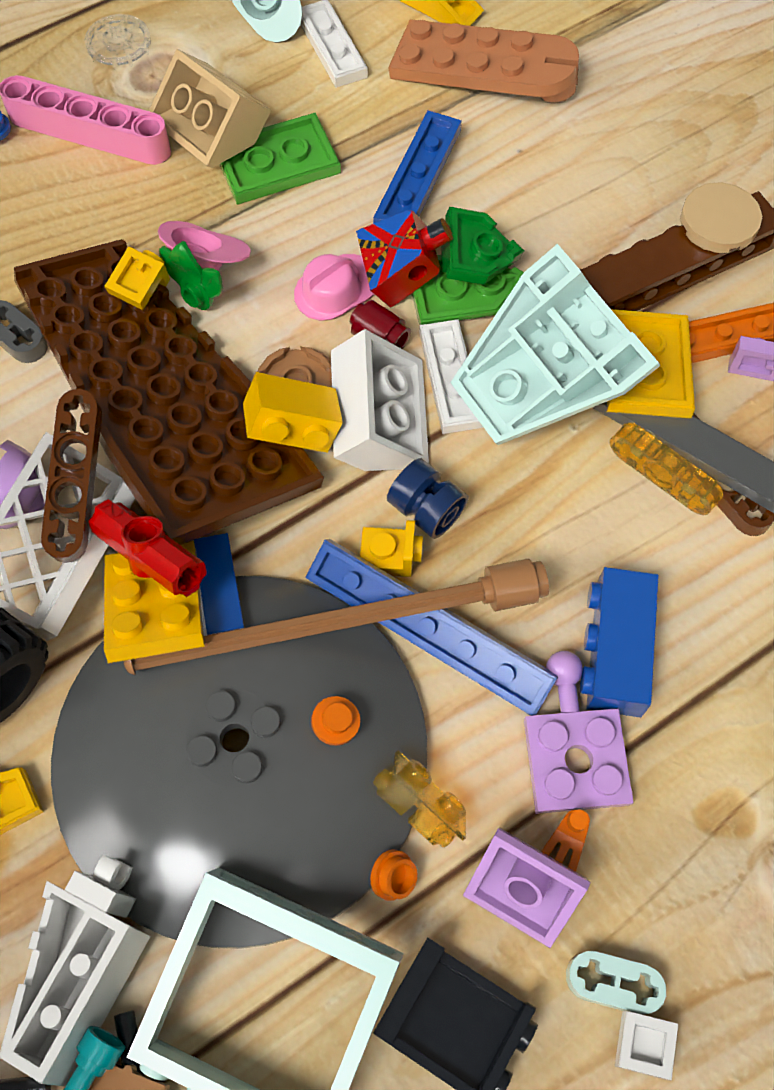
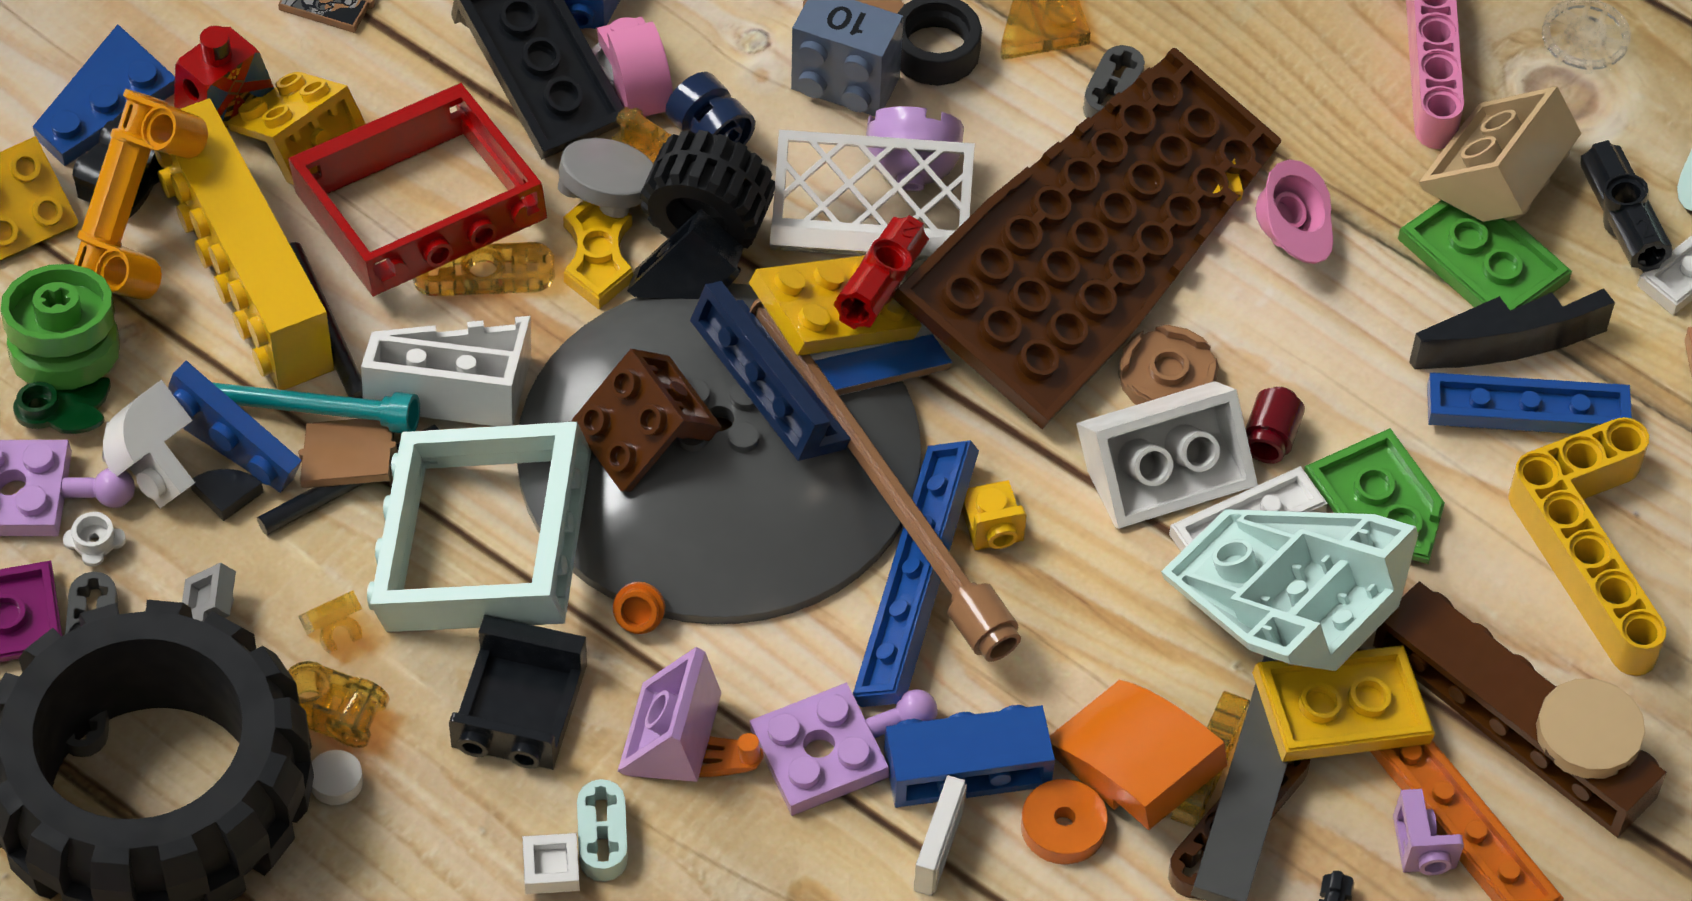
camera: 70 degrees right, 10 degrees down
(43, 714) = (688, 260): none -> black slope
(78, 475) = (934, 176): reddish brown beam -> none
(104, 887) = (541, 367): white tile -> none
(137, 277) = (1218, 164): yellow bracket -> none
(197, 284) = (1244, 230): green plate -> none
(212, 680) = (766, 374): none -> dark blue fence
(218, 807) = (641, 414): none -> reddish brown bracket
(279, 61) = (1626, 206): none -> black piece
(292, 412) = (1106, 360): yellow brick -> none
(332, 286) = (1325, 371): bright pink piece -> none
(335, 720) = (766, 494): orange plate -> none
(352, 161) = (1498, 334): none -> black slope
(401, 254) = (1375, 410): red torso -> none
(432, 502) = (1064, 526): dark blue wheel -> none
(438, 813) = (729, 588): clear yellow hinge -> none
(477, 247) = (1426, 484): green plate -> none
(546, 183) = (1580, 537): none -> yellow beam
(658, 512) = (1139, 751): none -> orange slope
(695, 689) = (940, 836): none -> white tile
(703, 578) = (1059, 842): none -> orange piece

